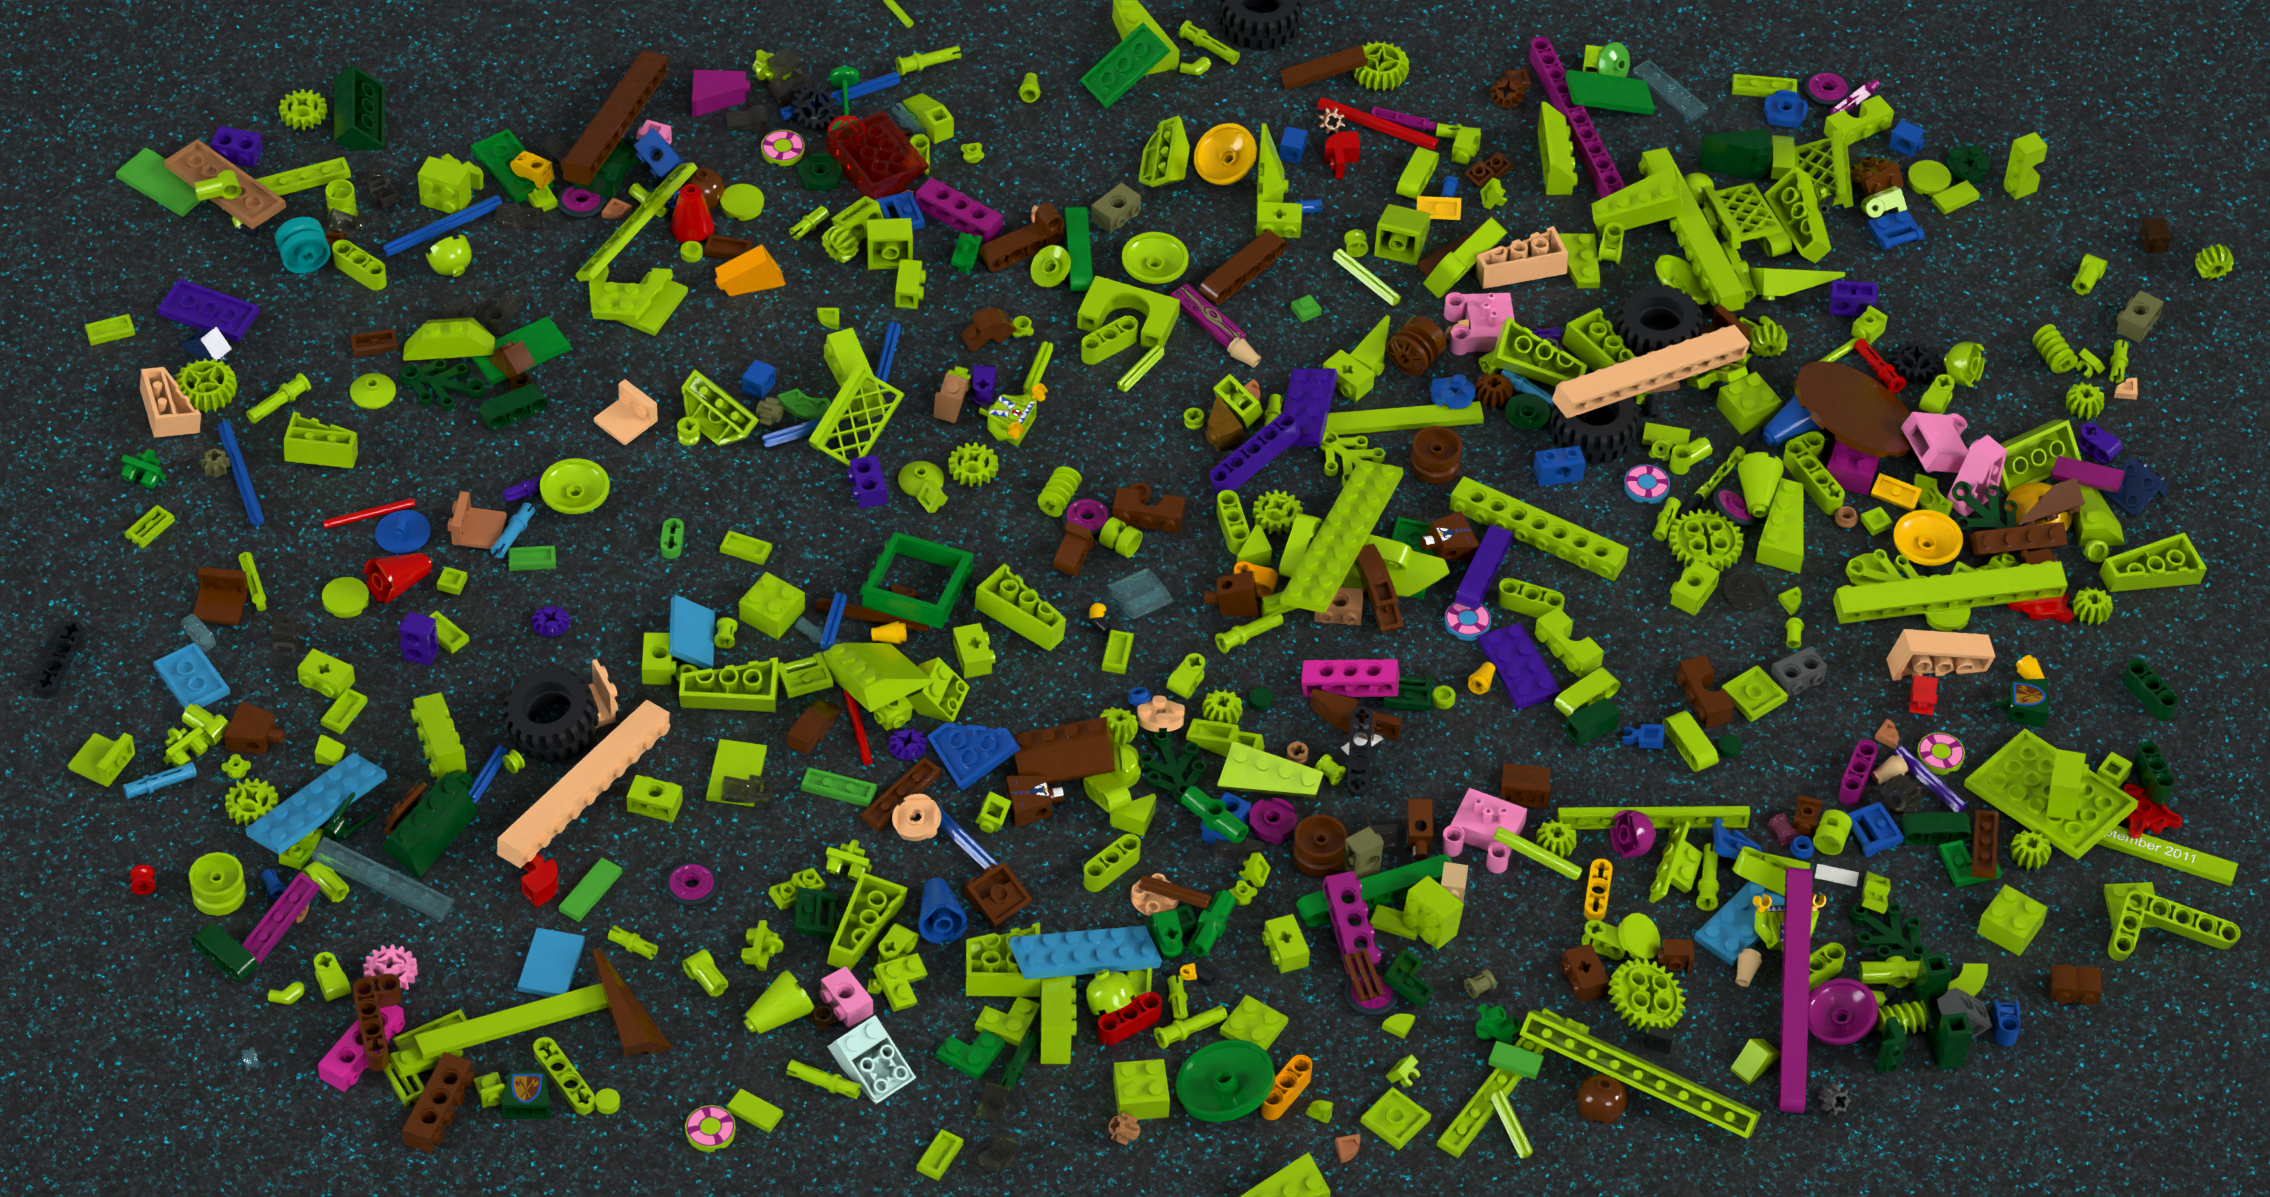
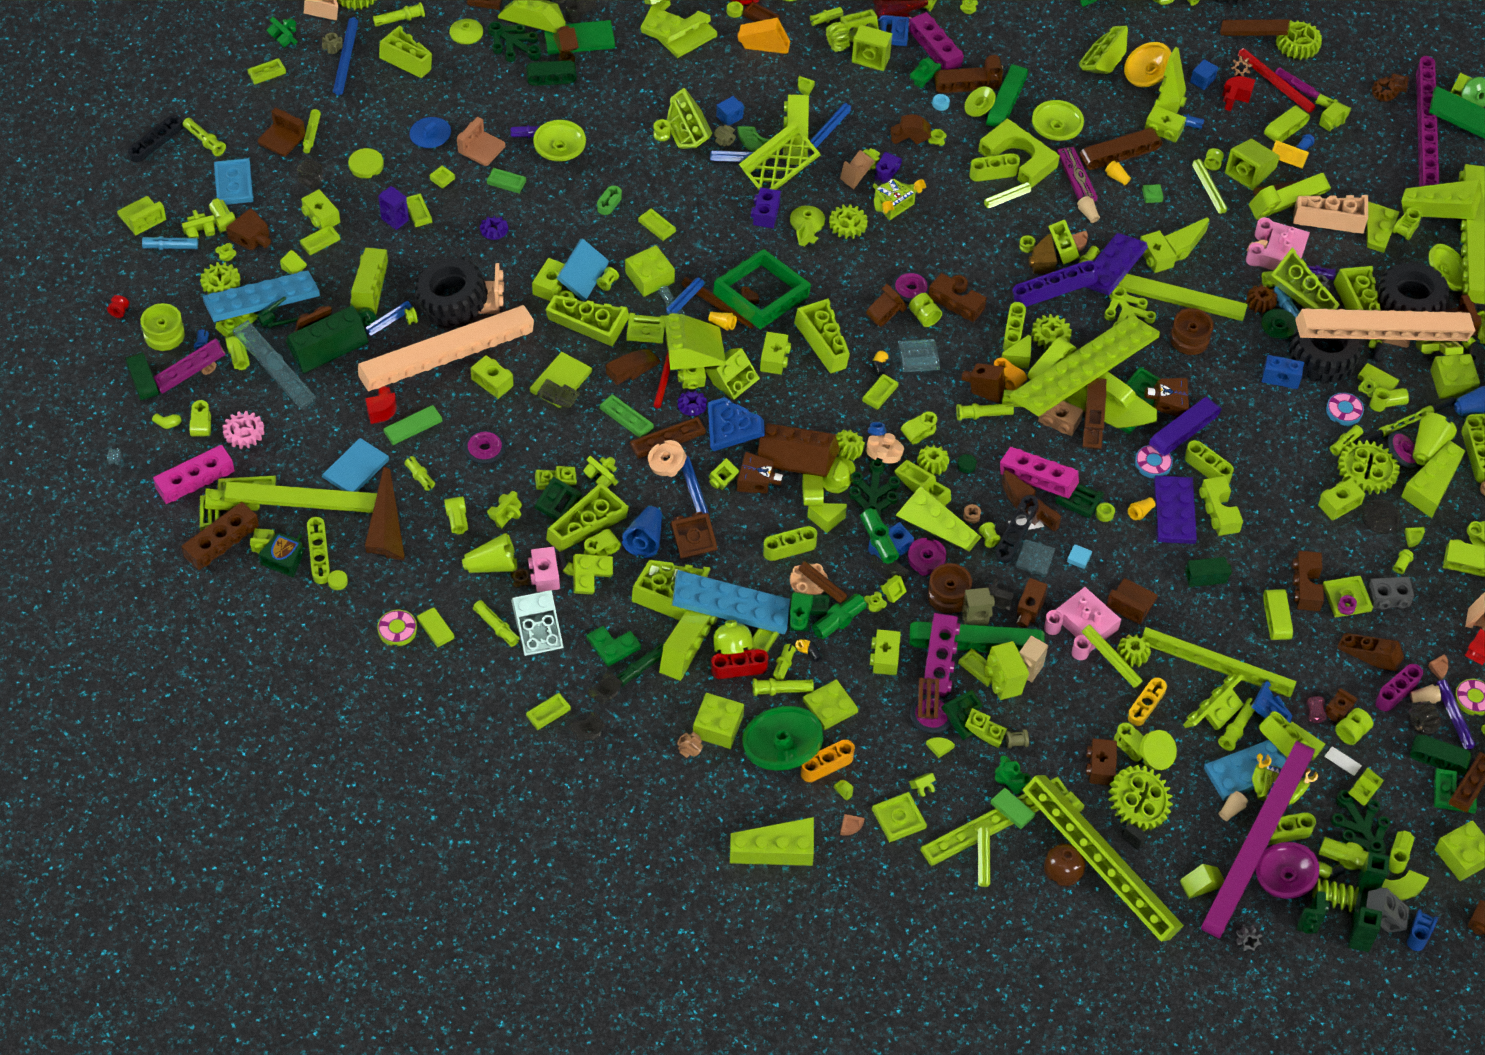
camera: 25 degrees right, 5 degrees up
(131, 637) = (208, 140): none -> lime pin
(198, 632) = (254, 152): clear light blue beam -> none
(369, 513) = (414, 112): red bar -> none
(379, 993) = (209, 443): reddish brown beam -> none
(395, 574) = (406, 158): red cone -> none
(516, 525) = (507, 154): dark azure pin -> none
(629, 414) = (626, 106): light nougat bracket -> none
(908, 284) = (872, 80): lime brick -> none
(1002, 282) = (940, 102): none -> medium azure tile
(1012, 1025) = (650, 635): lime plate -> none
(1038, 366) = (935, 168): lime axle -> none
(1059, 491) = (899, 261): lime piece -> none
(1116, 208) = (1050, 76): olive brick -> none
(1254, 297) = (1117, 172): none -> yellow cone
(1393, 777) = (1035, 557): none -> clear light blue piece
(1416, 345) = (1218, 247): reddish brown wheel -> none
(1441, 757) = (1079, 556): none -> medium azure tile
(1441, 987) = (983, 728): none -> lime slope
(1453, 391) = (1230, 290): blue plate -> none
(1492, 194) = (1336, 158): lime tile -> none
(1494, 167) = (1347, 140): reddish brown slope -> none
(1539, 528) = (1243, 413): lime brick -> none
(1556, 152) = (1400, 142): lime slope -> none
(1587, 691) = (1214, 547): lime beam -> none
(1632, 833) = (1195, 669): magenta cylinder -> none
(1647, 736) = (1246, 599): blue plate -> none
(1676, 954) = (1181, 775): reddish brown brick -> none
(1730, 746) = (1308, 630): dark green tile -> none
(1760, 708) = (1347, 610): none -> magenta bush
(1804, 843) = (1327, 725): blue plate -> none
(1812, 742) = (1372, 650): none -> reddish brown slope
(1879, 825) = (1396, 736): blue plate -> none
(1945, 941) = (1401, 851): none -> lime piece

